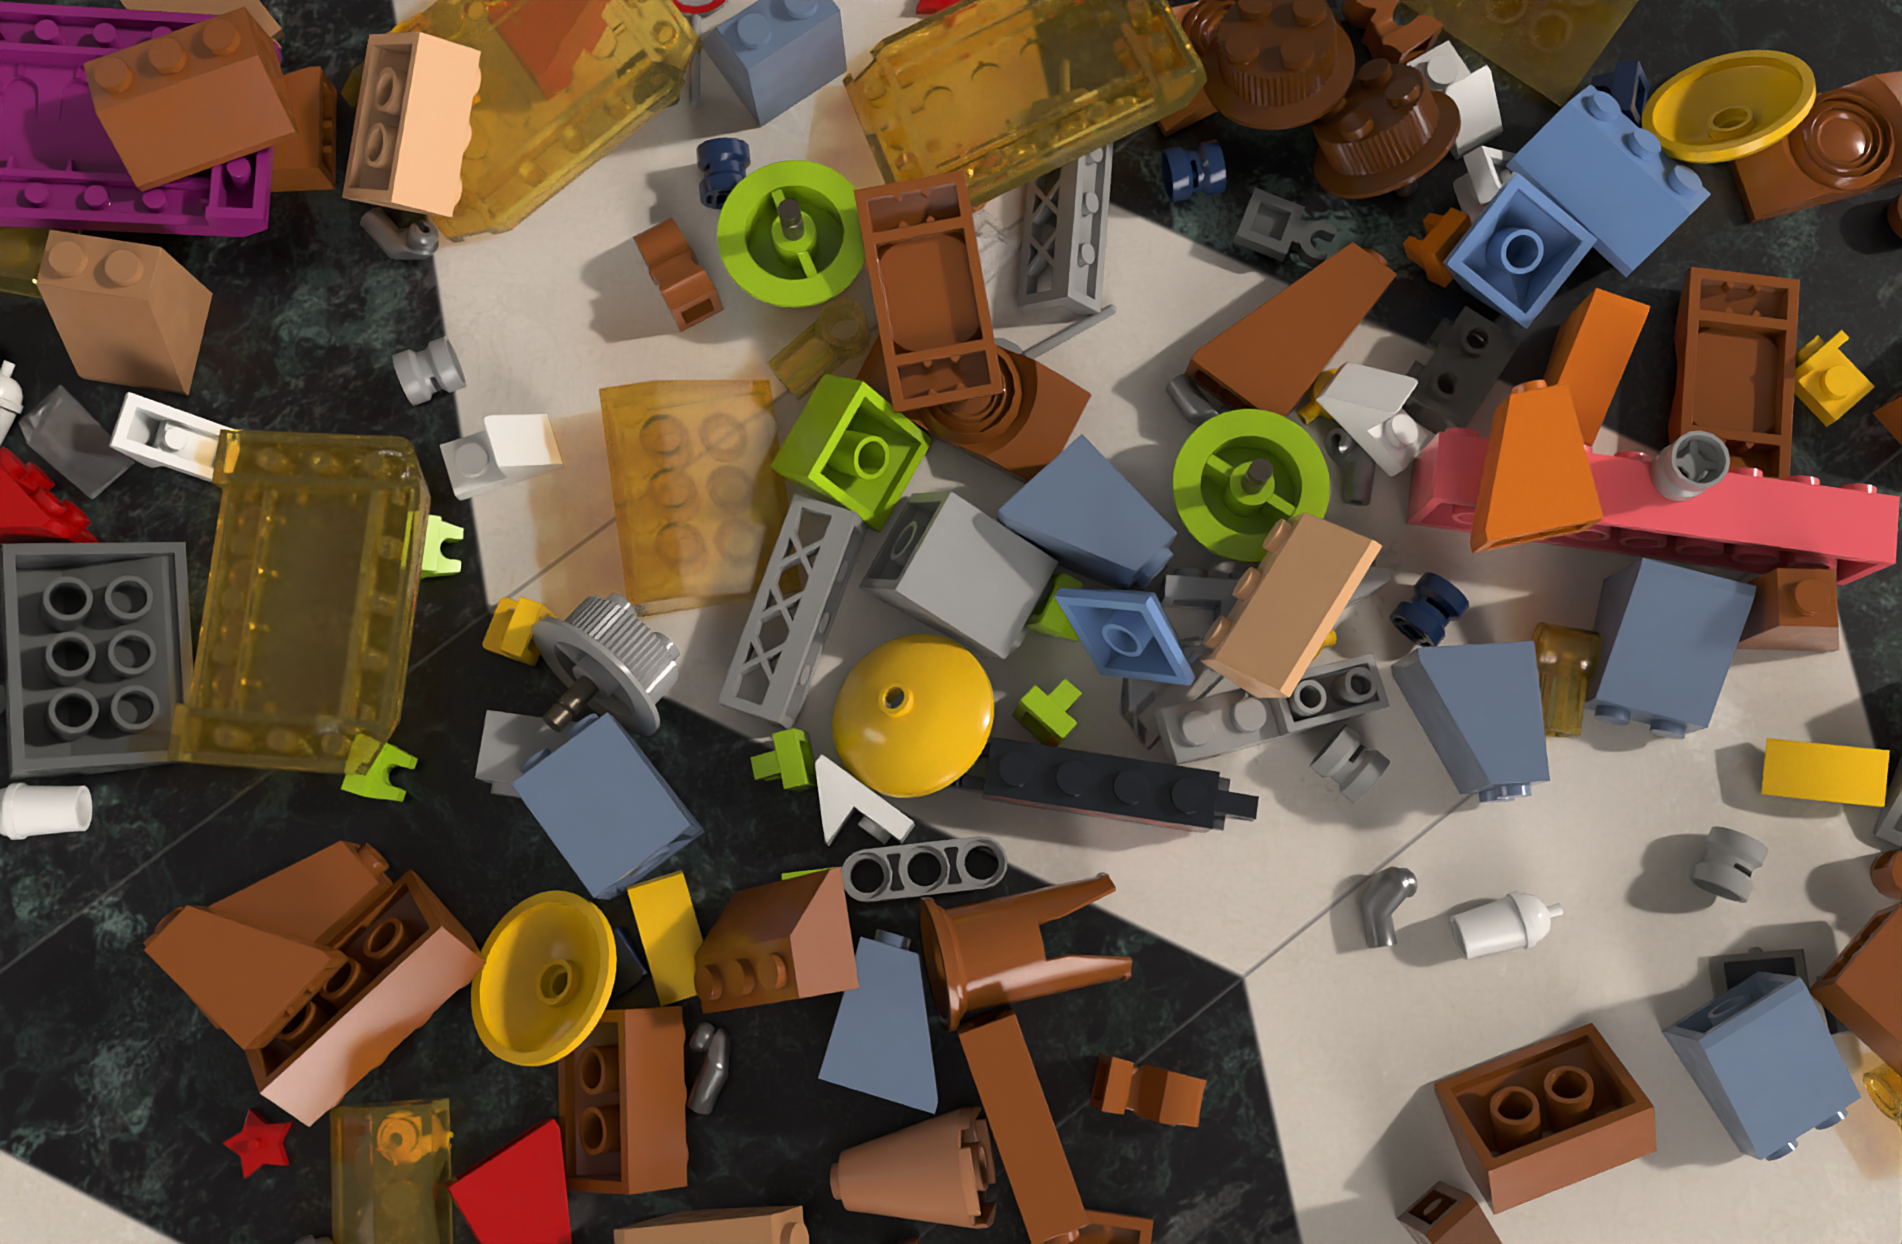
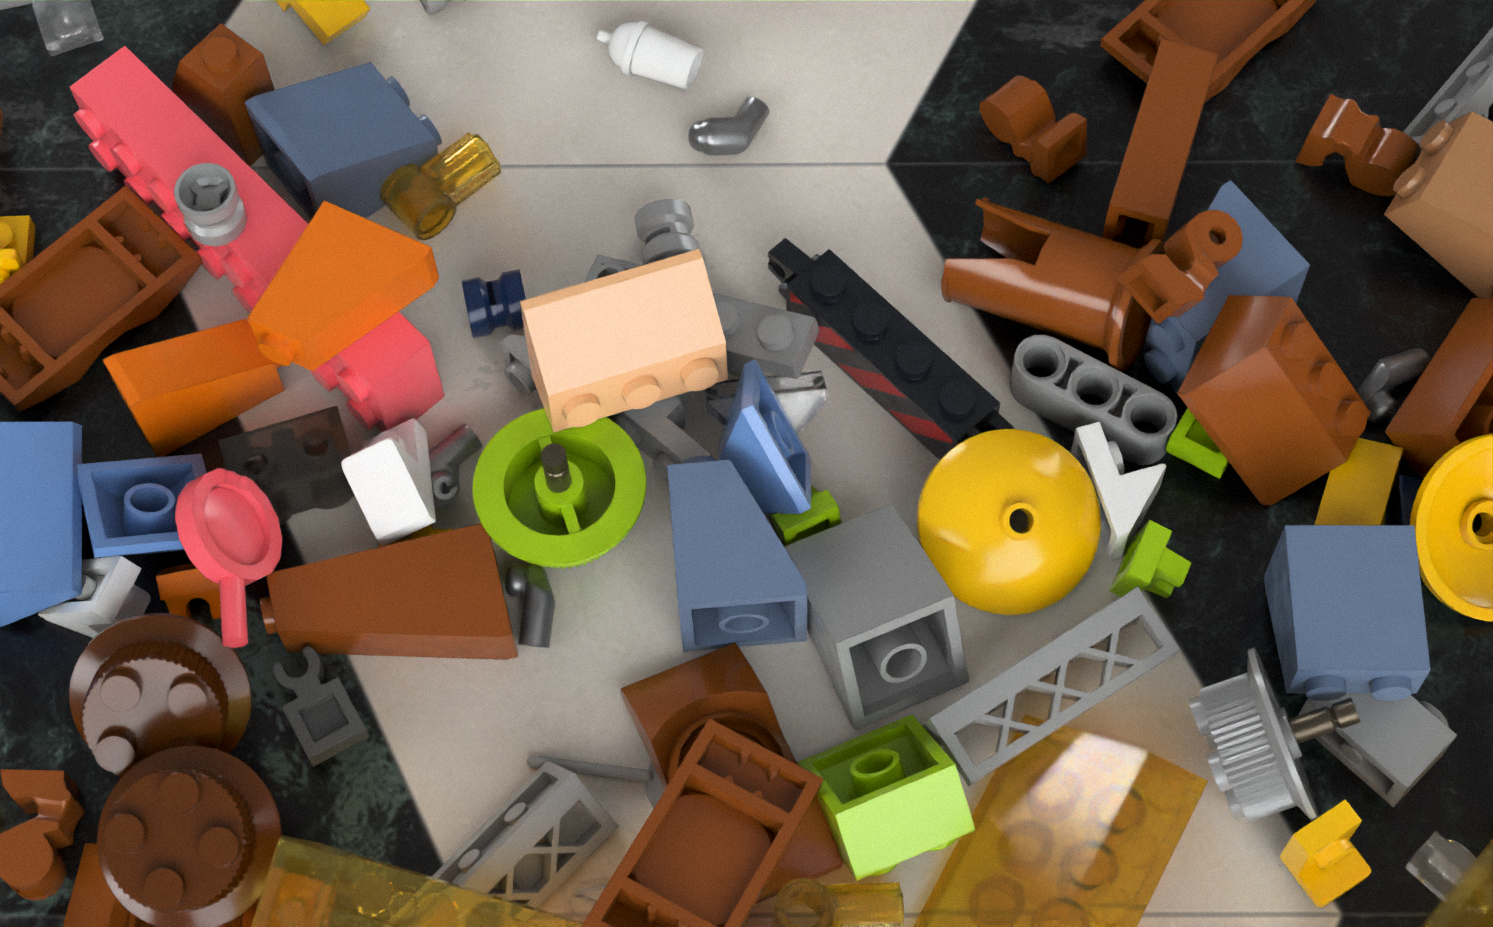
camera: 140 degrees left, 15 degrees down
(432, 684) = (1440, 864): none -> clear plate
(909, 1007) = (1194, 253): none -> dark orange leg
(923, 1172) = (1272, 176): nougat cone -> none
(1047, 715) = (883, 446): lime tile -> none
(1193, 170) = (347, 820): dark blue wheel -> none
(1440, 266) = (230, 539): none -> coral piece
(1471, 92) = (44, 727): white slope -> none
(1480, 714) = (532, 188): sand blue slope -> none

